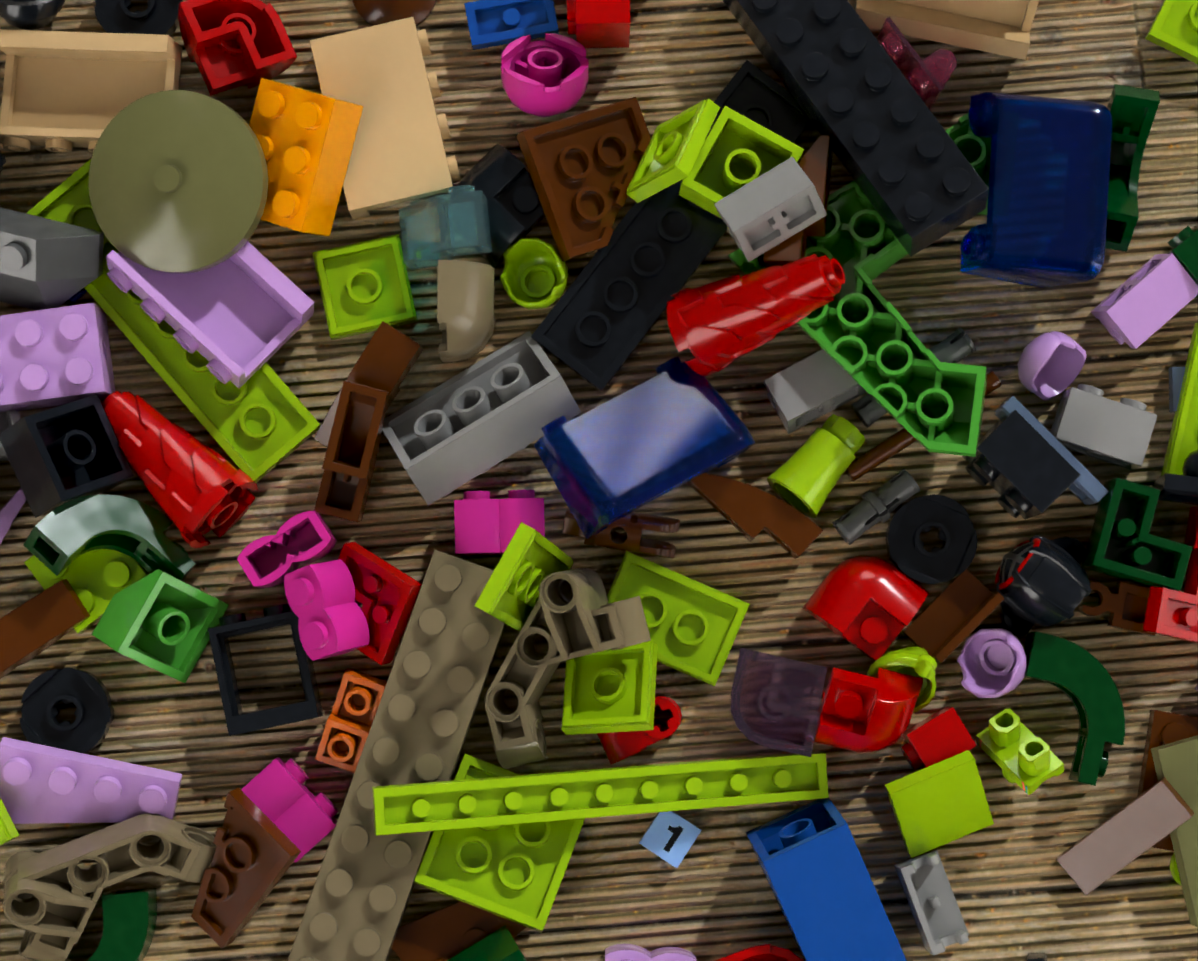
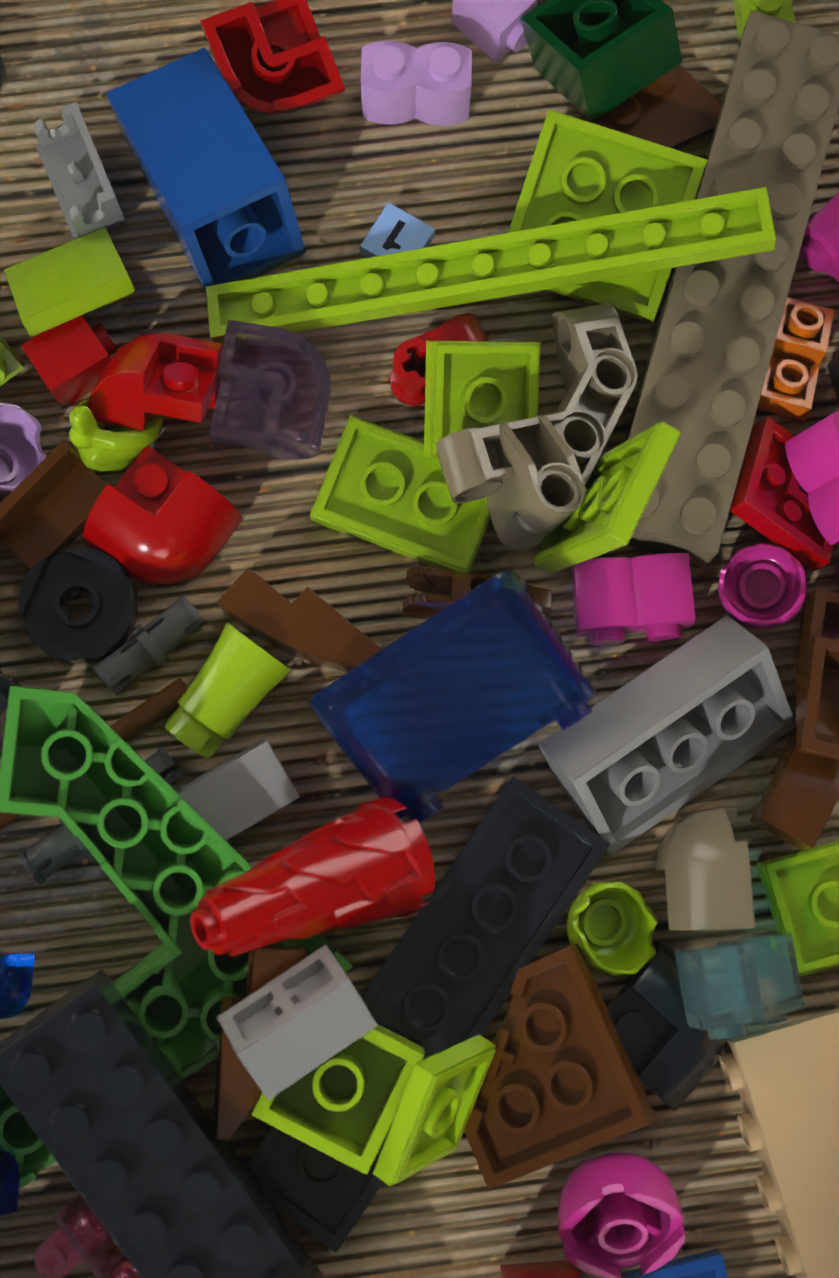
camera: 175 degrees right, 5 degrees down
(398, 527) = (762, 586): none -> dark pink hair

